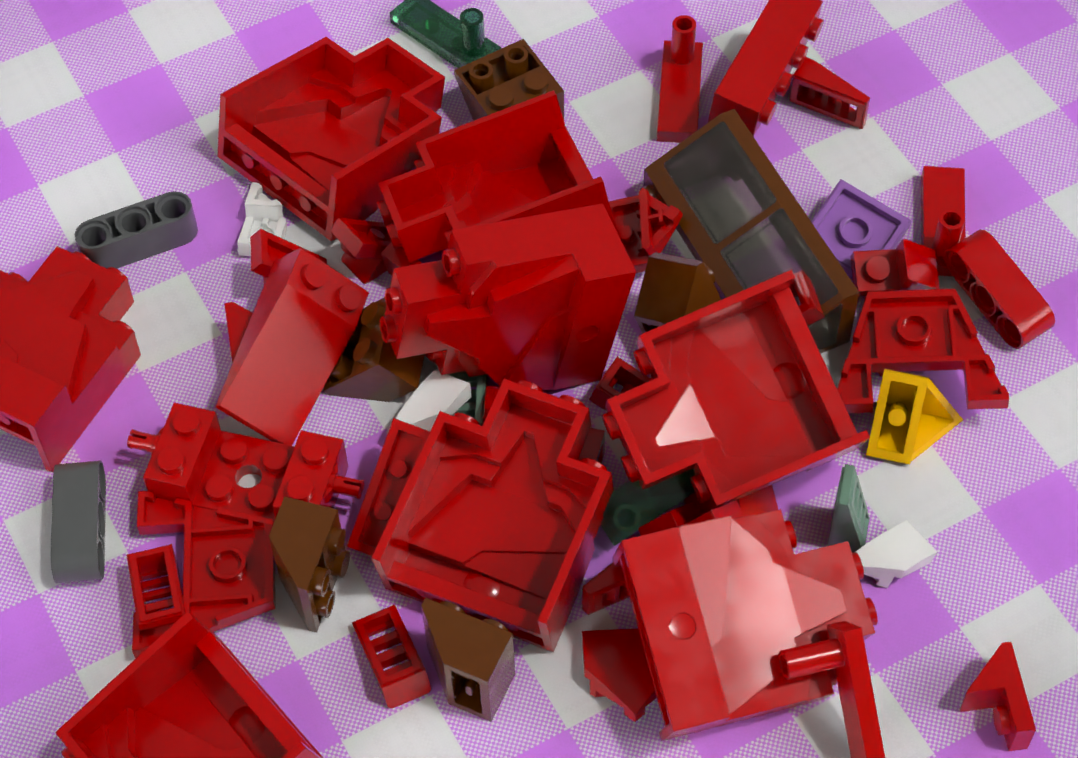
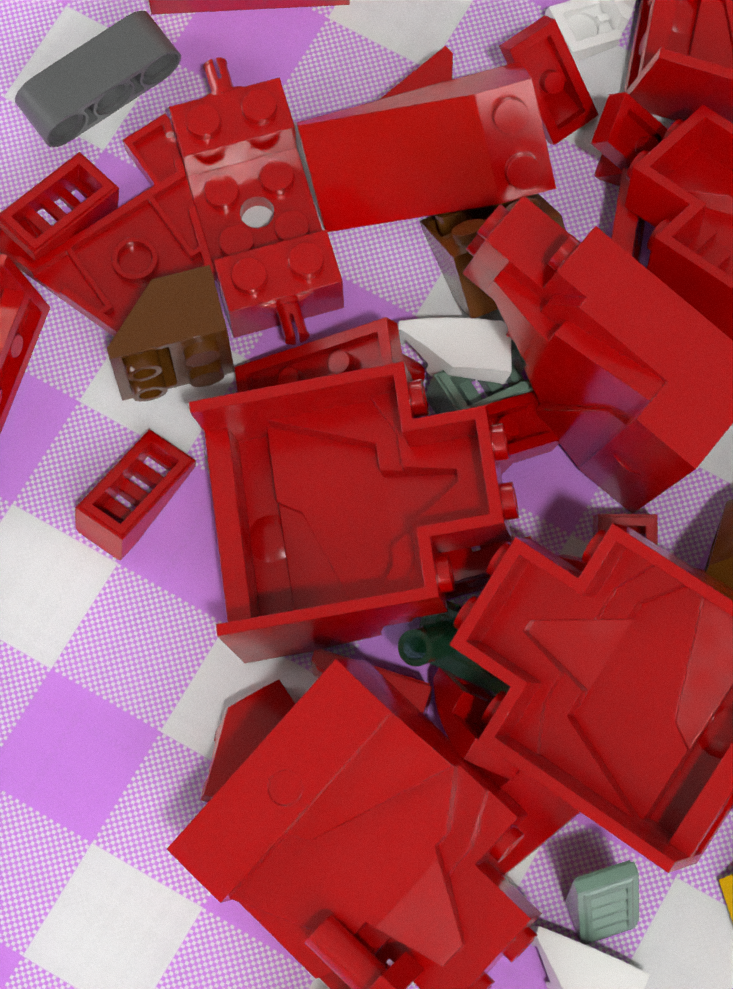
camera: 60 degrees right, 15 degrees up
(469, 657) = (148, 575): reddish brown slope -> none

